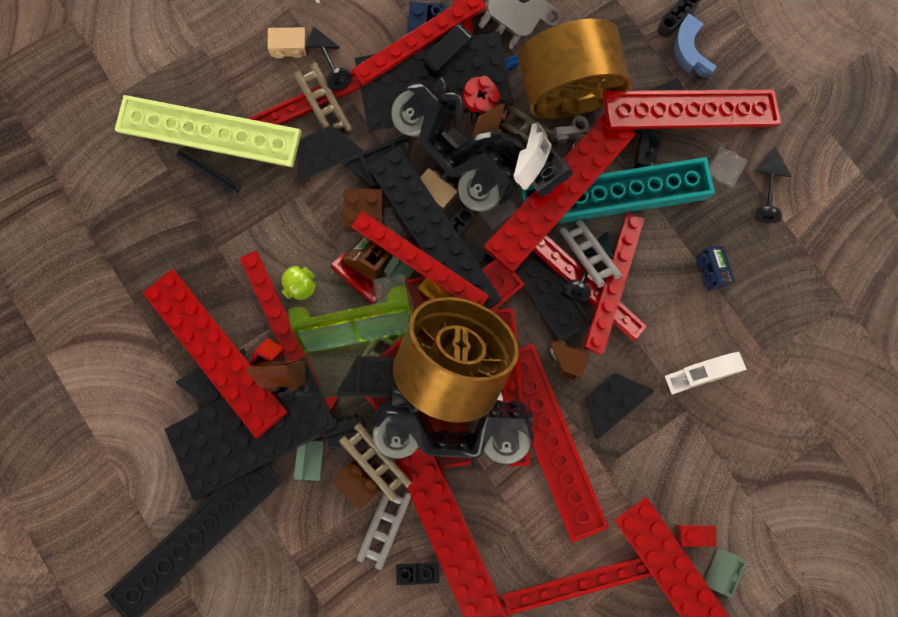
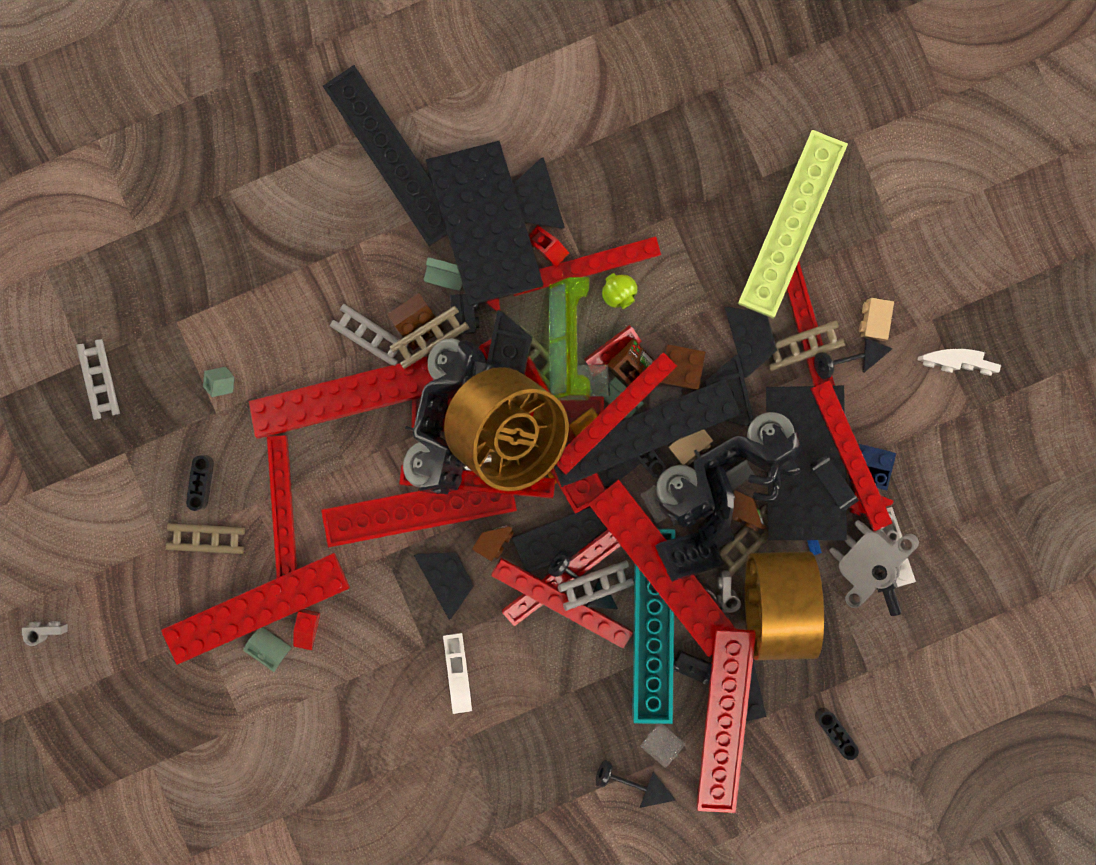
camera: 105 degrees right, 10 degrees up
(208, 171) = (752, 218): black axle -> none
(214, 353) = (563, 199): red plate -> none
(279, 374) = (527, 259): reddish brown slope -> none
(417, 573) = (320, 359): black slope -> none
(484, 86) = (788, 512): red plate -> none
(533, 157) = (700, 547): white slope -> none
(685, 49) = (796, 730): medium blue arch -> none
(715, 268) = (558, 707): dark blue slope -> none

